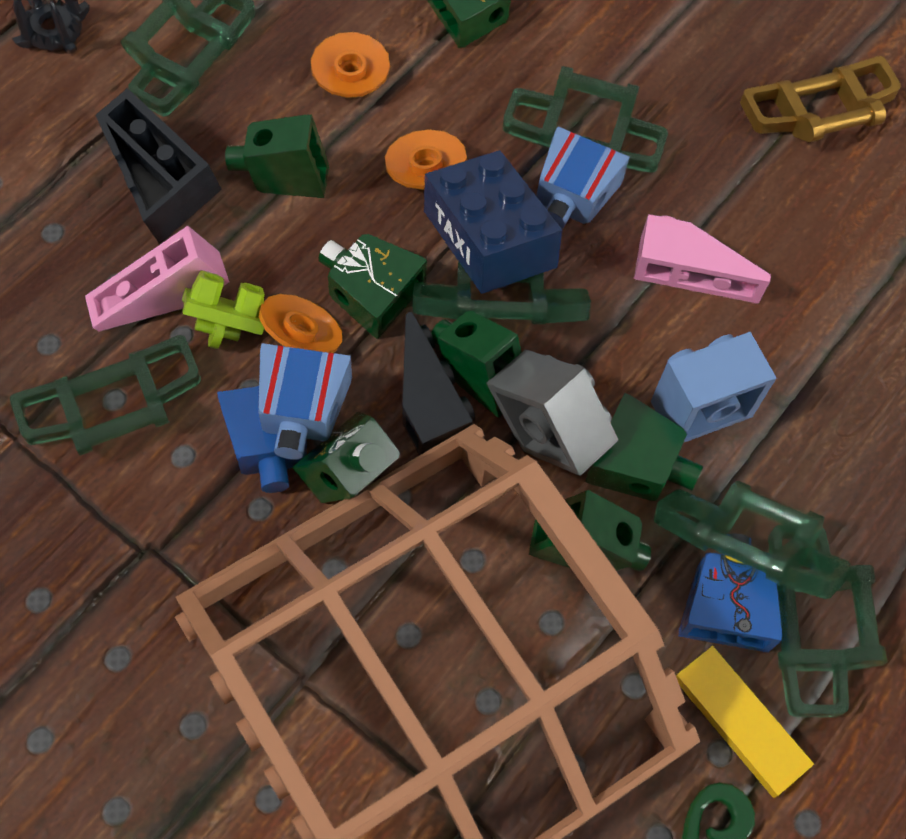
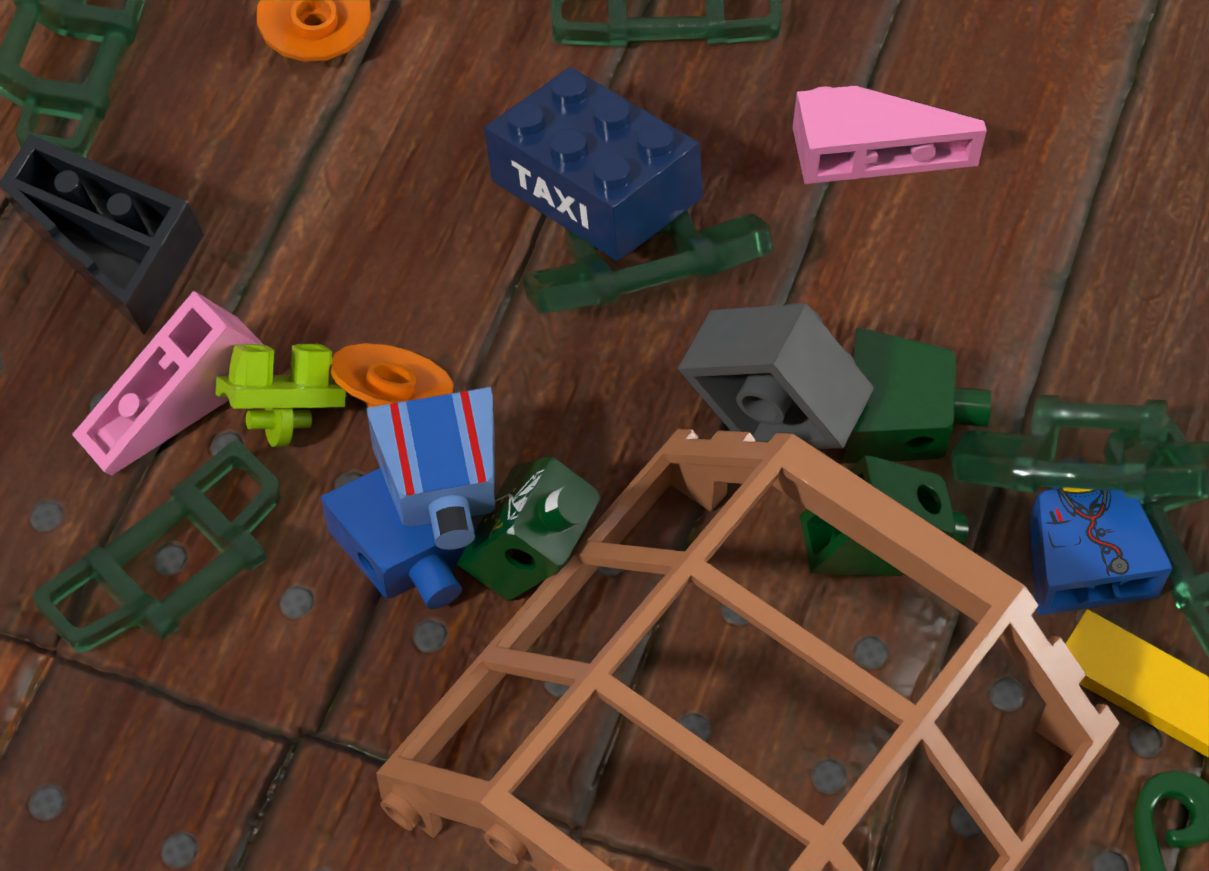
camera: 15 degrees left, 5 degrees down
(283, 157) = (275, 165): dark green torso -> none
(372, 280) = (461, 290): dark green torso -> none
(422, 153) = (460, 104): orange dish -> none
(430, 402) = (601, 418): black slope -> none
(476, 353) = (642, 341): dark green torso -> none
(579, 177) = (684, 69): torso -> none
(713, 385) = (967, 281): medium blue brick -> none

